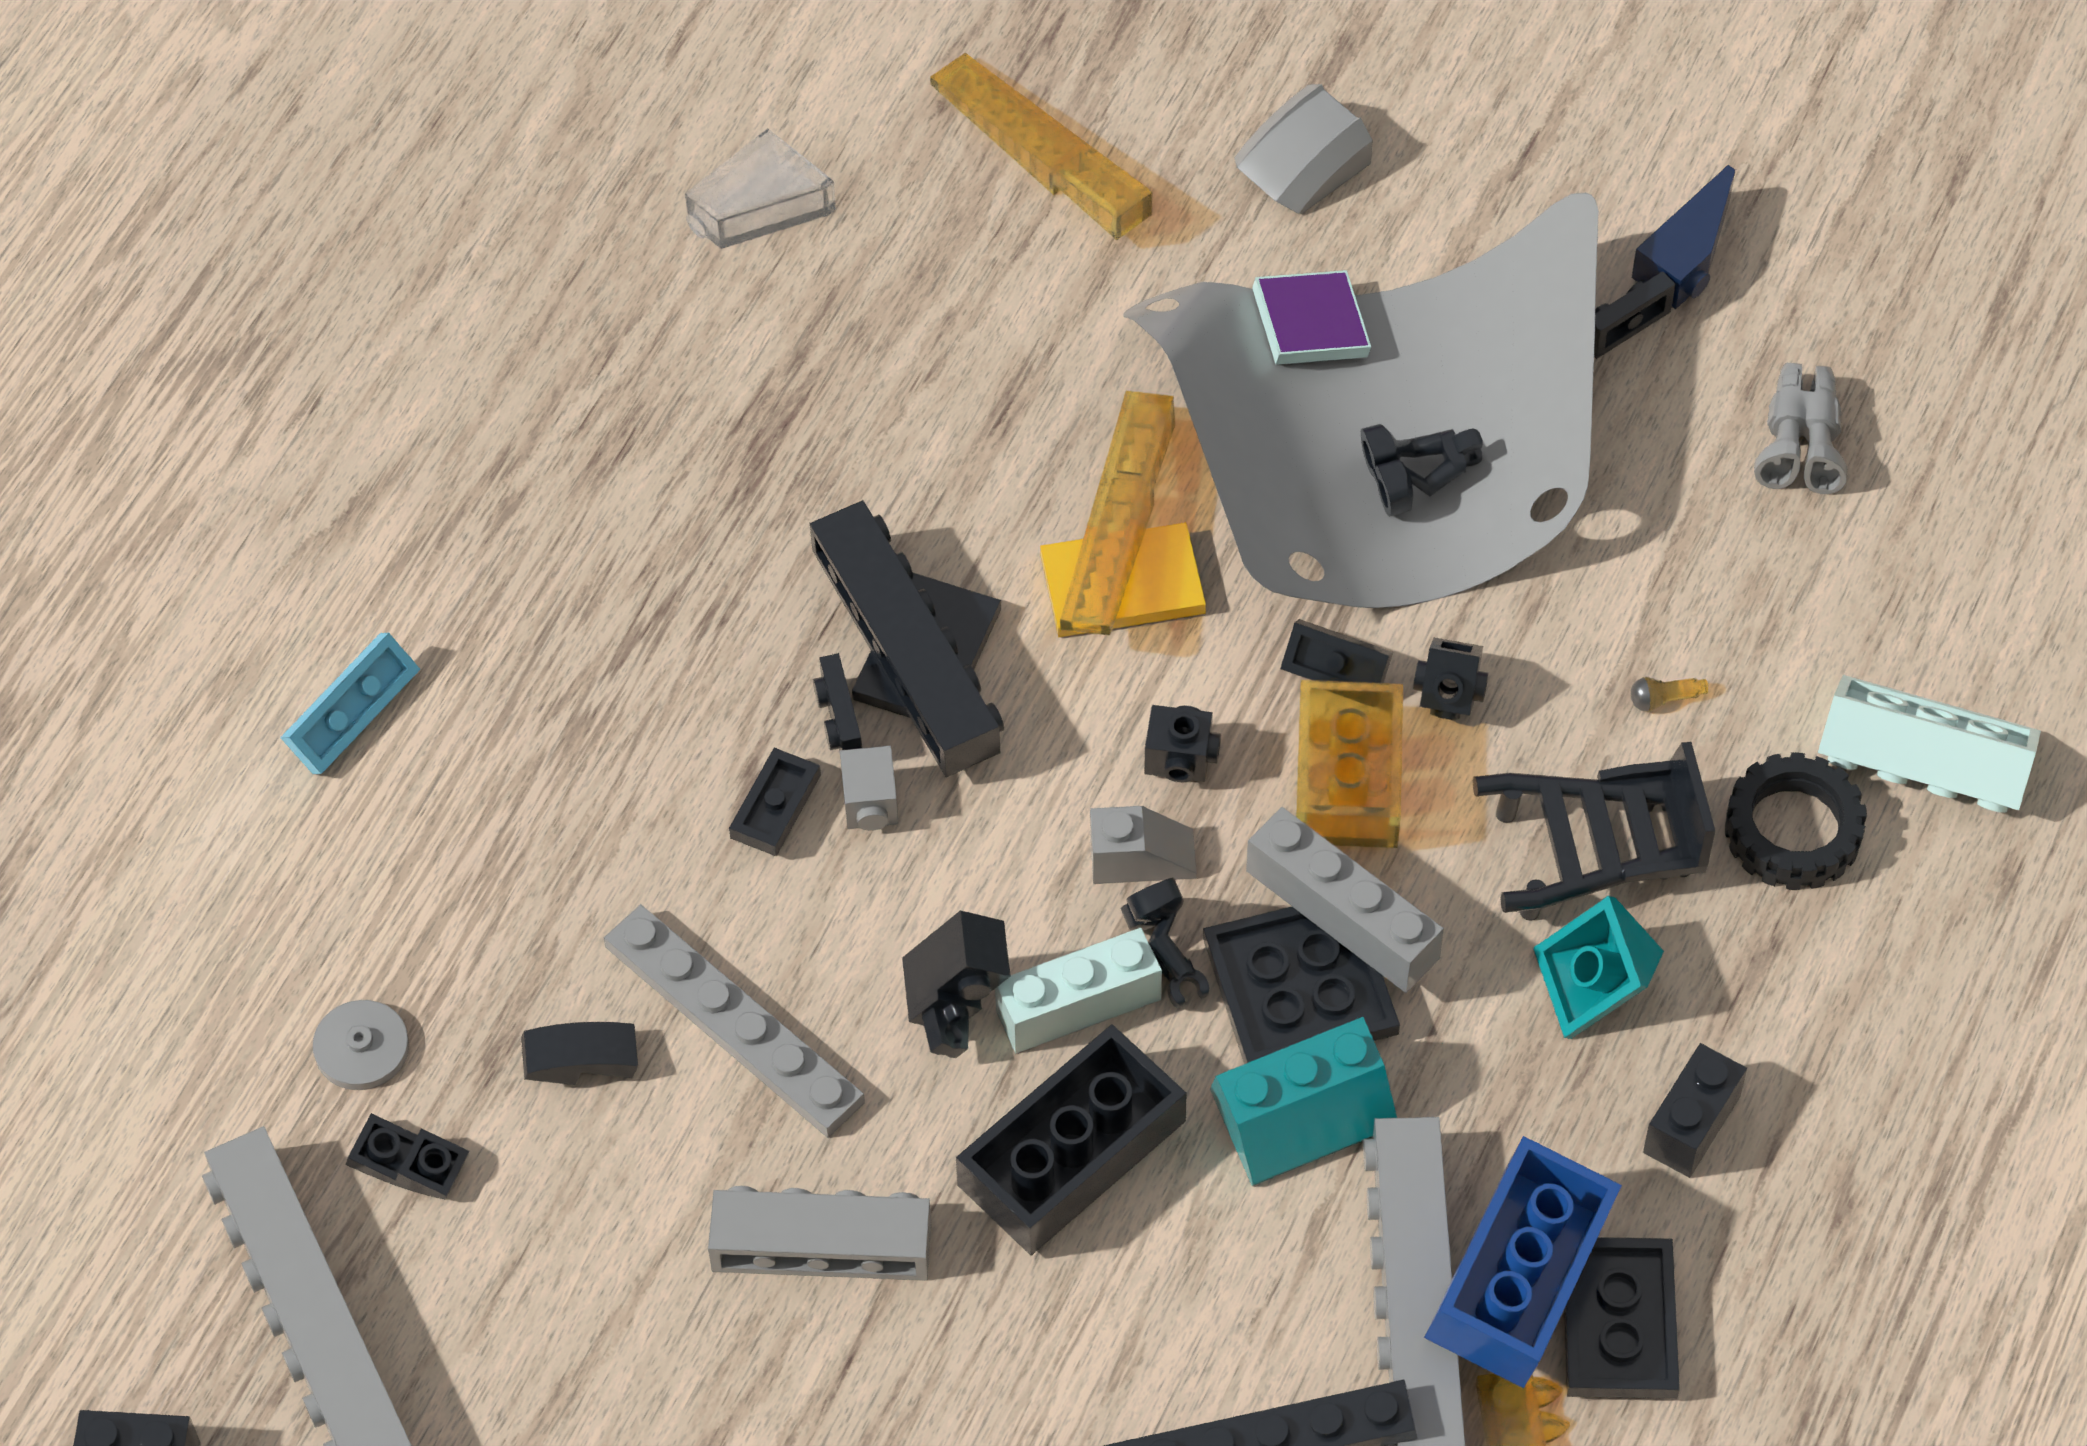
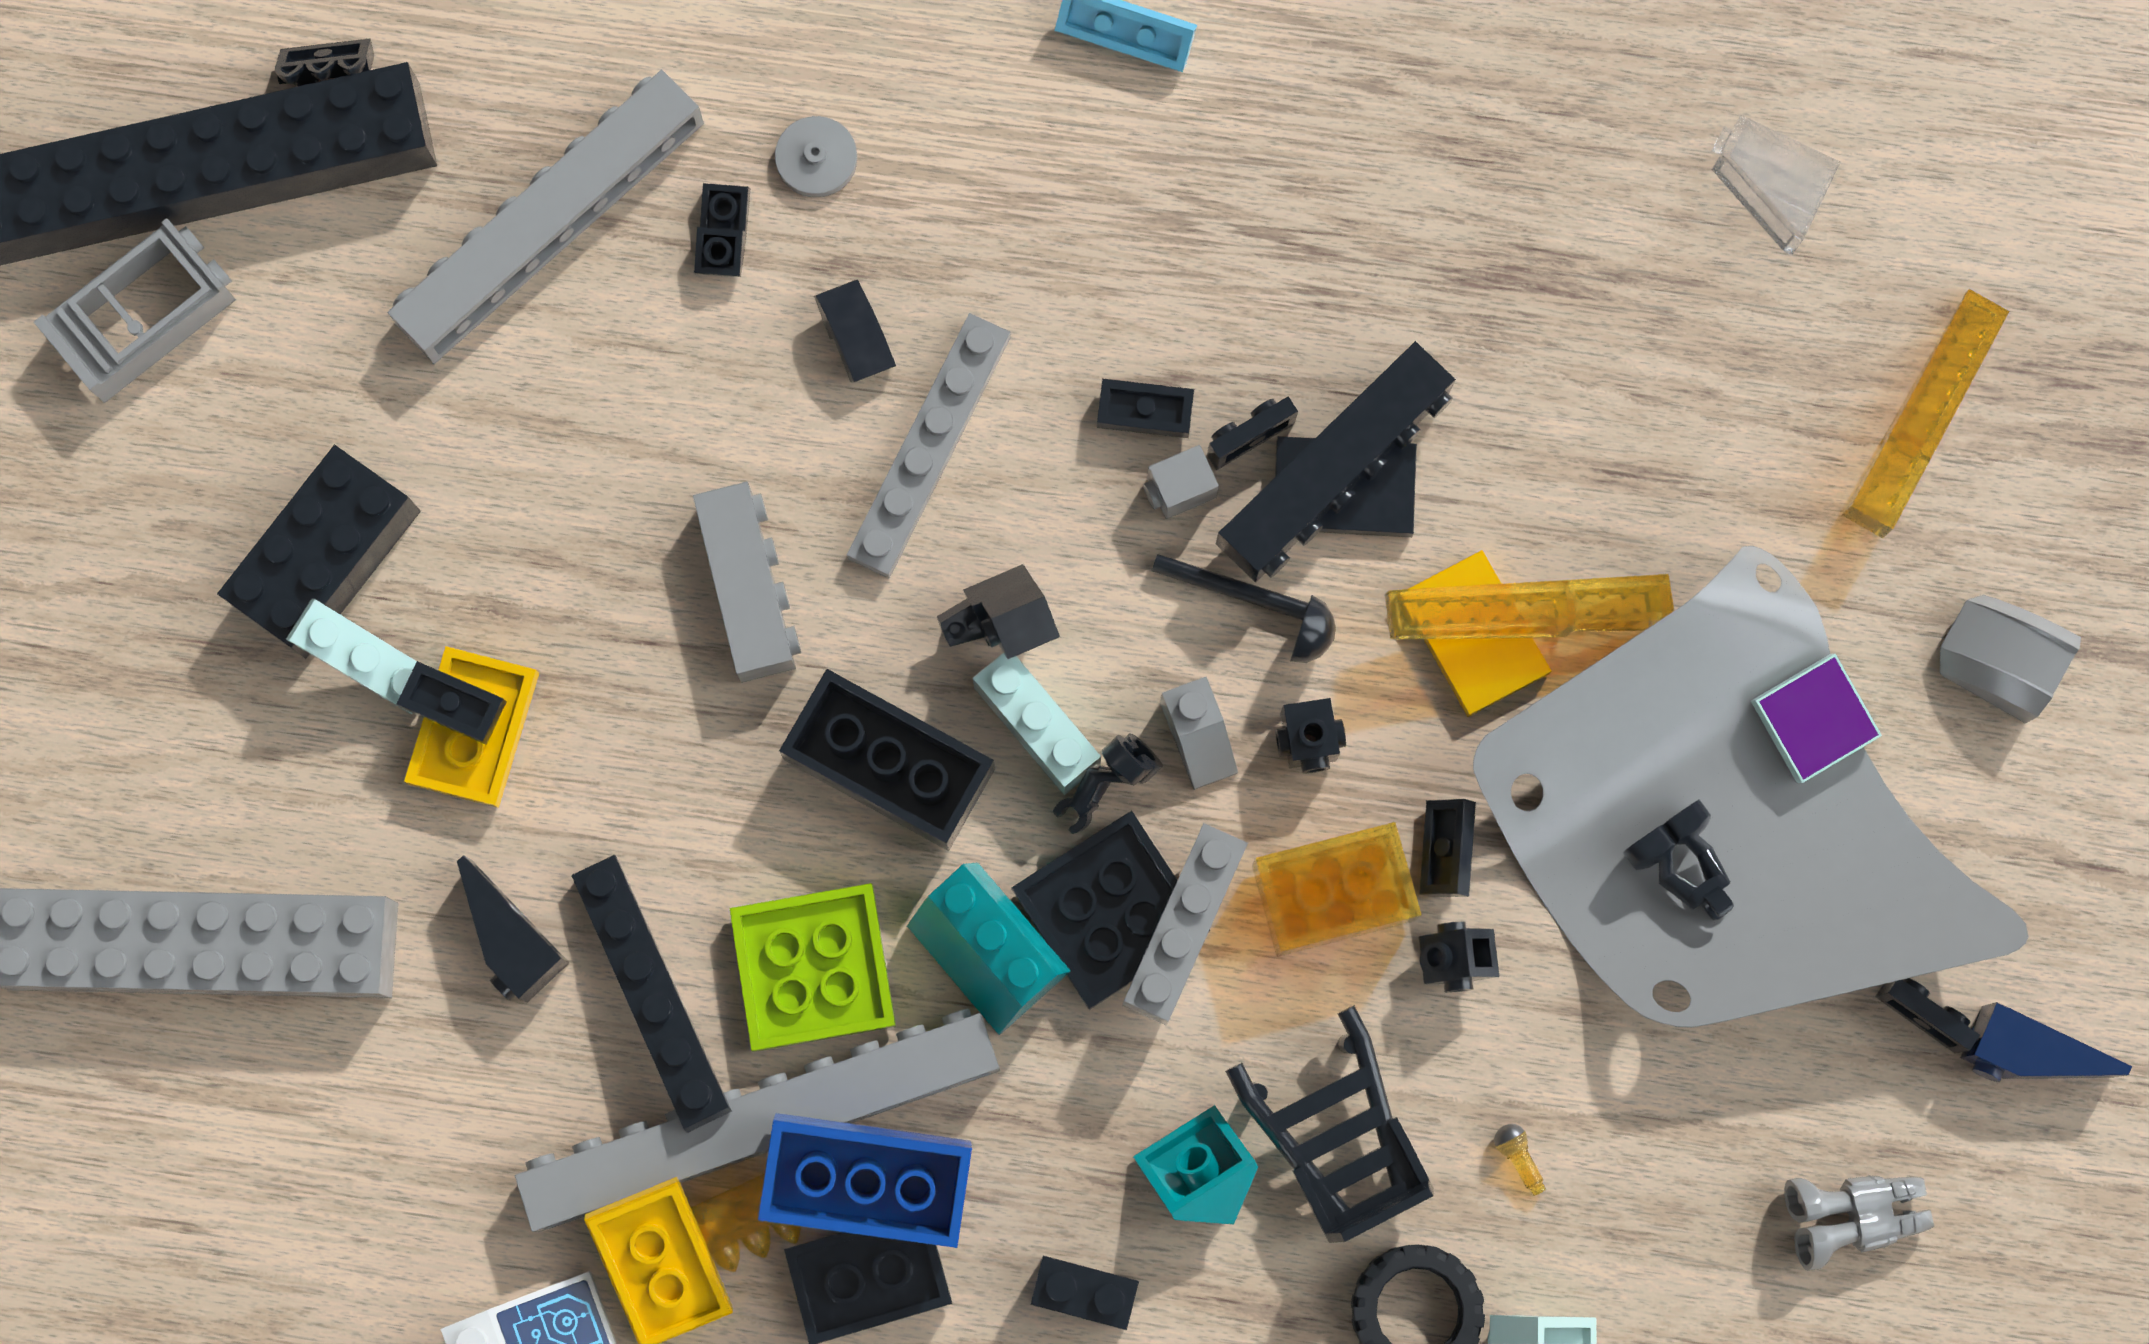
camera: 70 degrees right, 20 degrees up
(1061, 707) = (1318, 623): none -> black piece
(1270, 1283) = (812, 967): none -> lime plate

